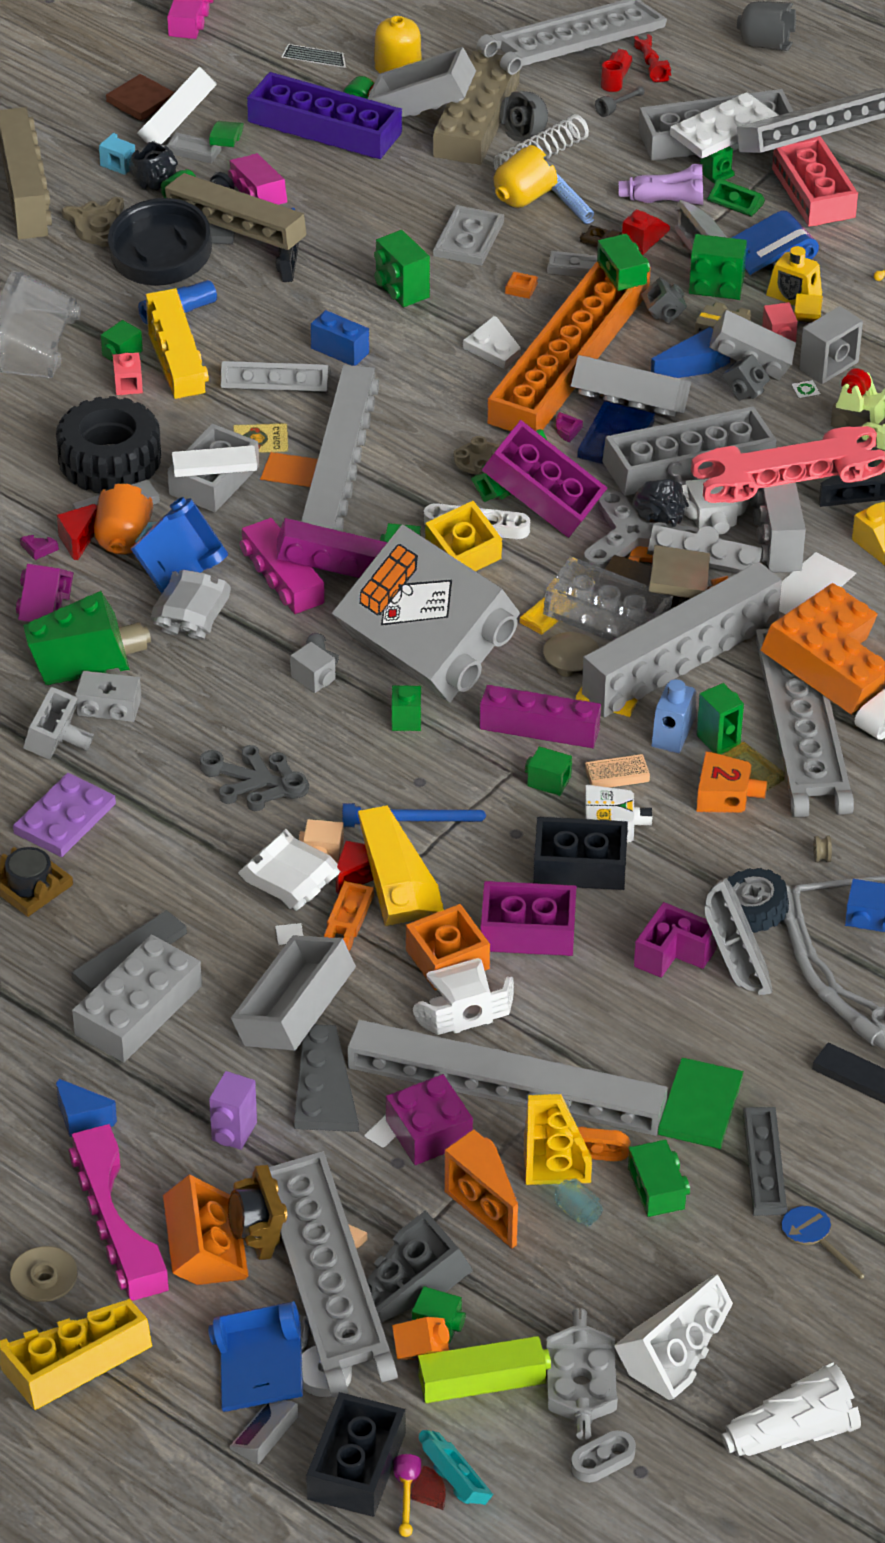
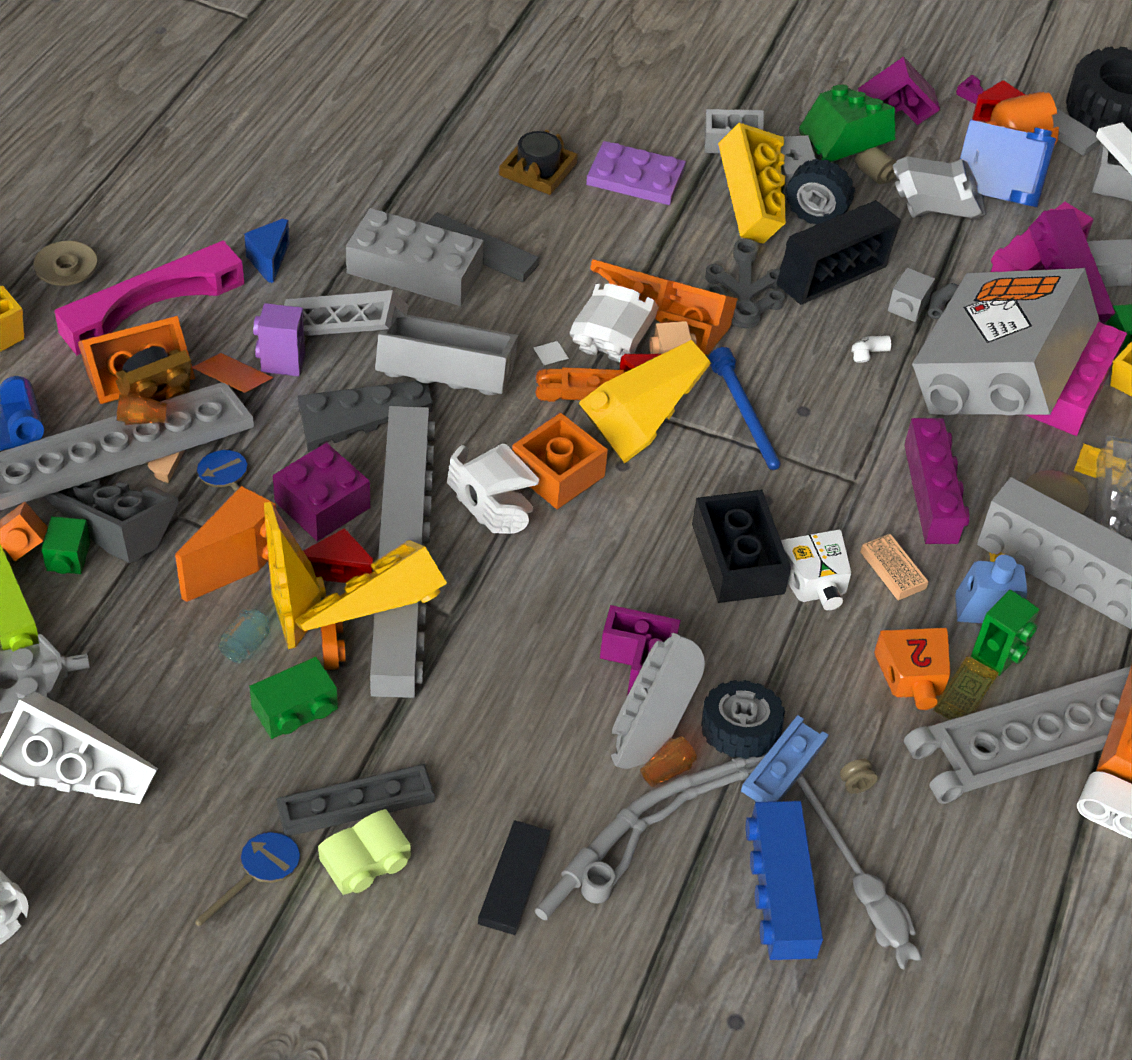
camera: 70 degrees right, 5 degrees up
(139, 725) = (755, 180): none -> yellow wedge
(170, 683) = (819, 191): none -> black wheel
(217, 1047) = (348, 311): none -> light grey fence
(243, 1164) = (232, 372): none -> orange sticker
(258, 693) = (837, 252): none -> black brick
(280, 810) = (705, 311): none -> orange wedge
(299, 1227) = (138, 409): none -> clear orange cone
(362, 716) = (870, 344): none -> white arm
(368, 1194) = (222, 469): none -> blue piece
(406, 708) = (889, 372): green brick -> none
(508, 1122) = (339, 558): none -> red slope
(529, 917) = (626, 519): magenta brick -> none
(549, 770) = (859, 504): green brick -> none
(578, 1070) = (397, 580): none -> yellow wedge
(700, 1103) = (423, 725): green tile -> none
(779, 954) = (669, 761): none -> clear orange cone
(804, 888) = (784, 762): none -> medium blue hinge
(824, 1158) = (365, 852): none -> yellowish green brick

